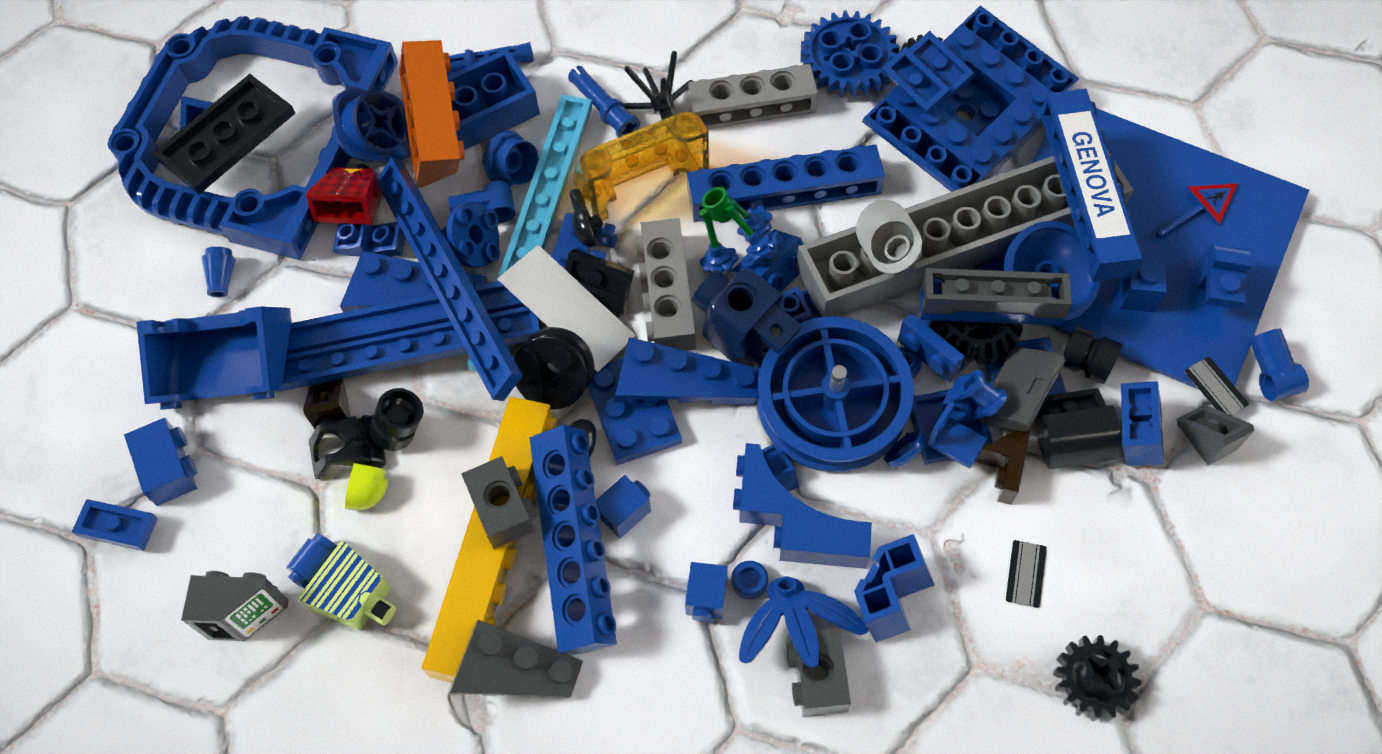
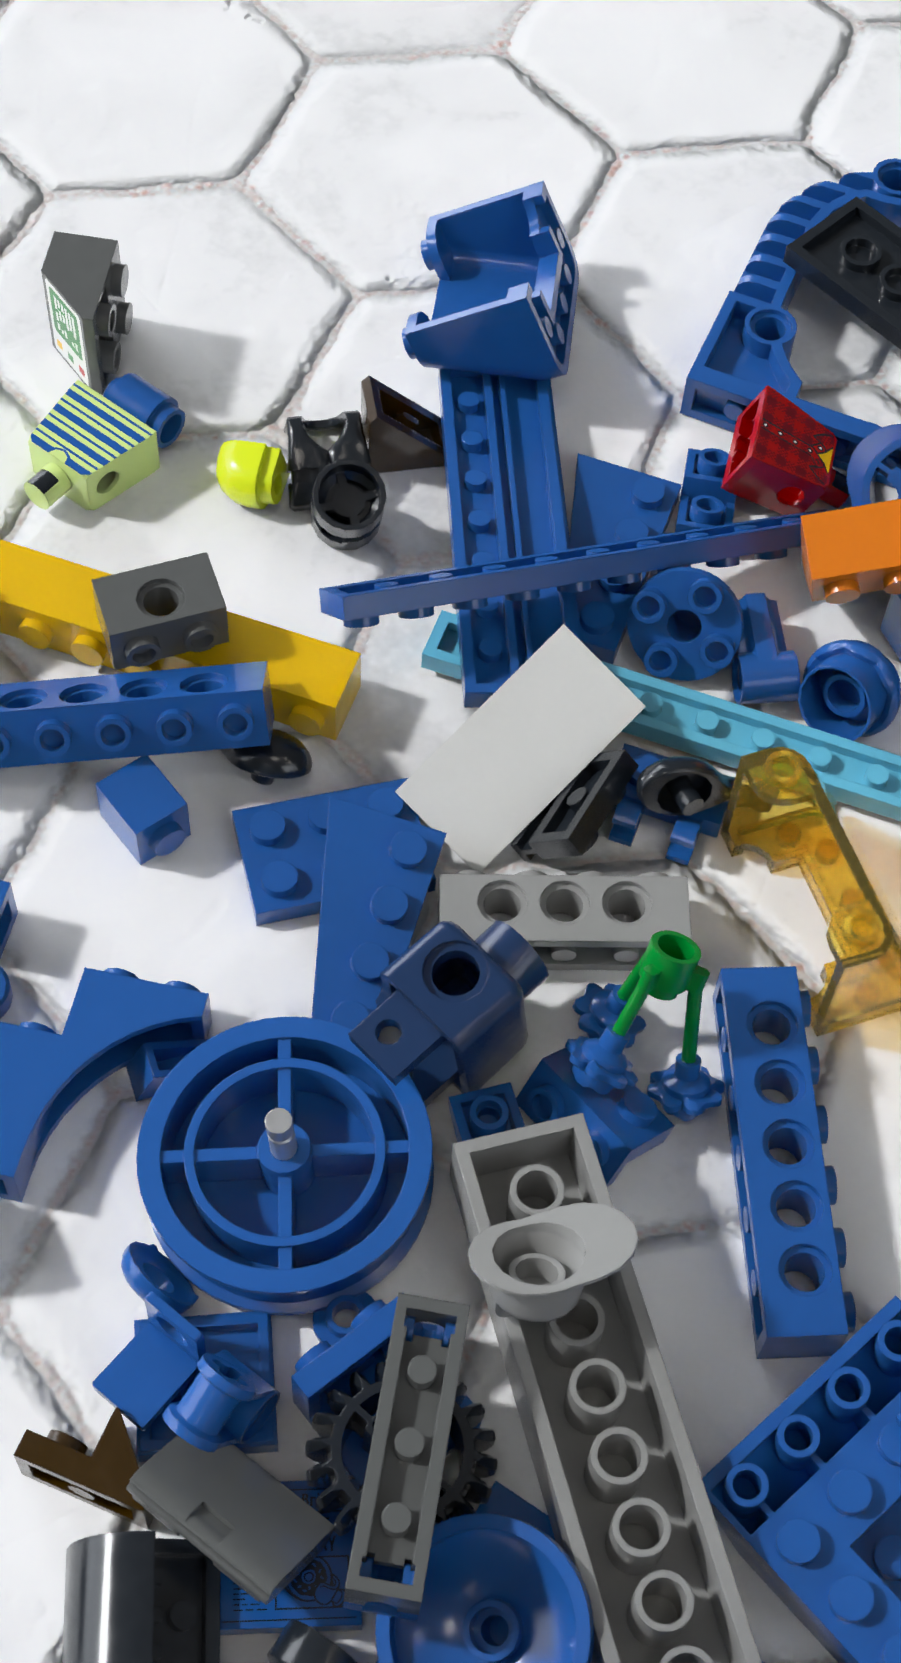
camera: 90 degrees right, 5 degrees down
(115, 525) = (251, 199): blue plate -> none
(161, 461) = (338, 242): blue brick -> none
(218, 269) = (659, 304): blue cone -> none
(568, 354) = (400, 714): black wheel -> none

